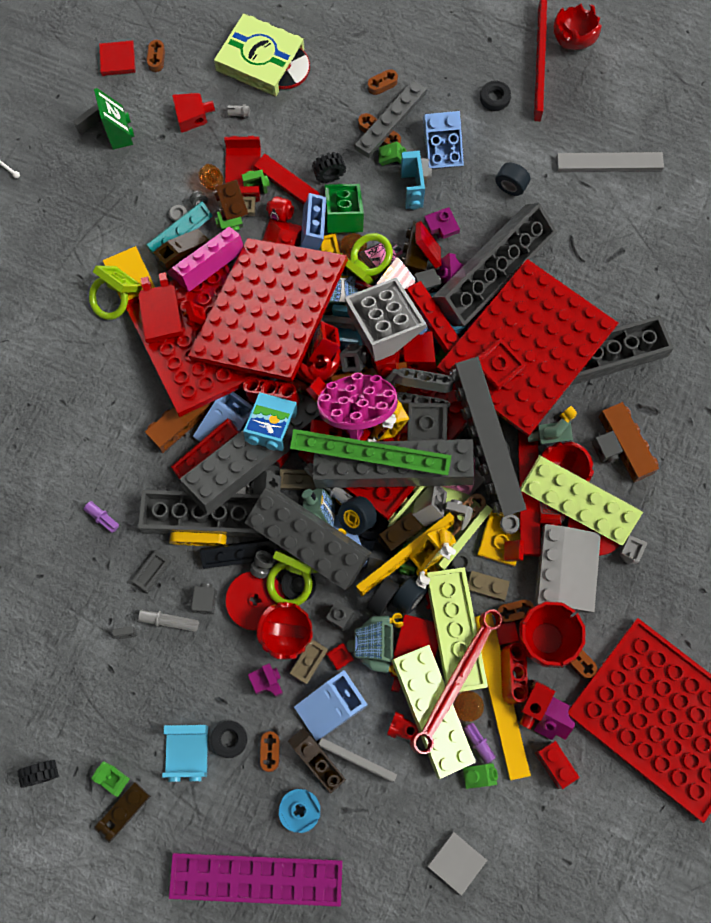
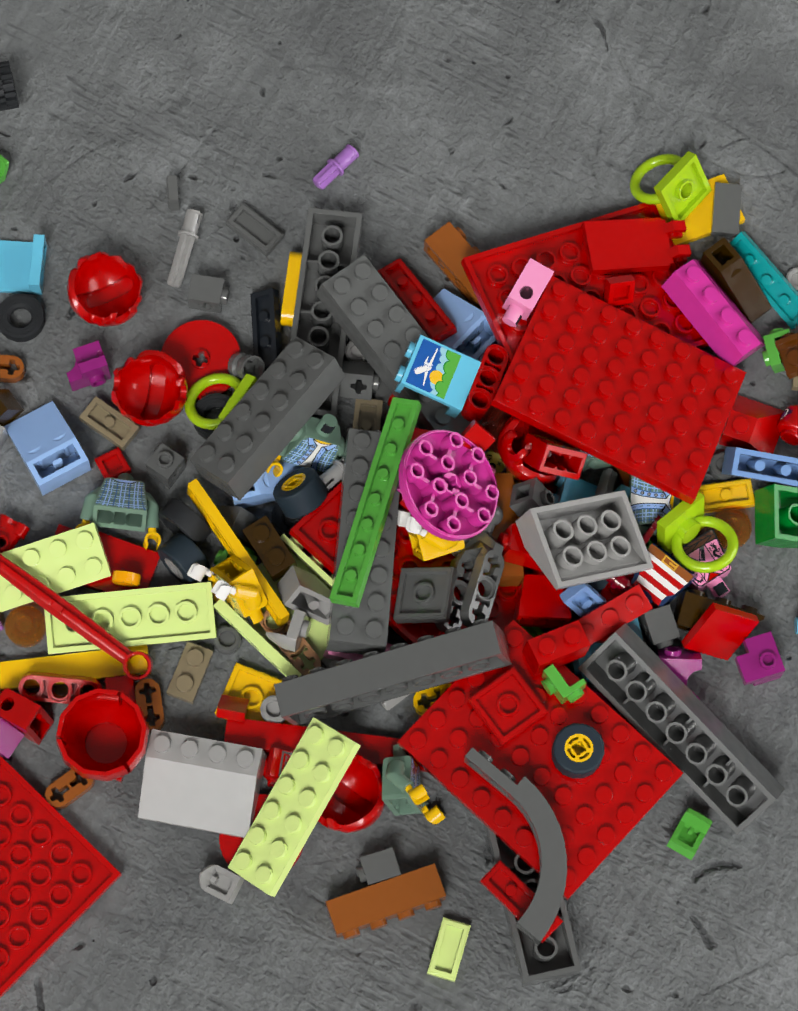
camera: 90 degrees right, 0 degrees up
(129, 256) = (726, 209): none -> dark grey tile
(204, 366) = (526, 292): none -> bright pink torso
(207, 673) = (104, 289): none -> red piece
(429, 633) = (126, 578): none -> light orange tile
(458, 333) = (556, 647): none -> red brick
(483, 332) = (556, 685): none -> bright green bracket
(521, 322) = (575, 761): none -> black wheel
(557, 262) = (689, 833): none -> bright green bracket
(601, 328) = (549, 840): none -> dark grey arch
(623, 352) = (512, 892): none -> red tile
(651, 402) = (448, 949): none -> yellowish green tile

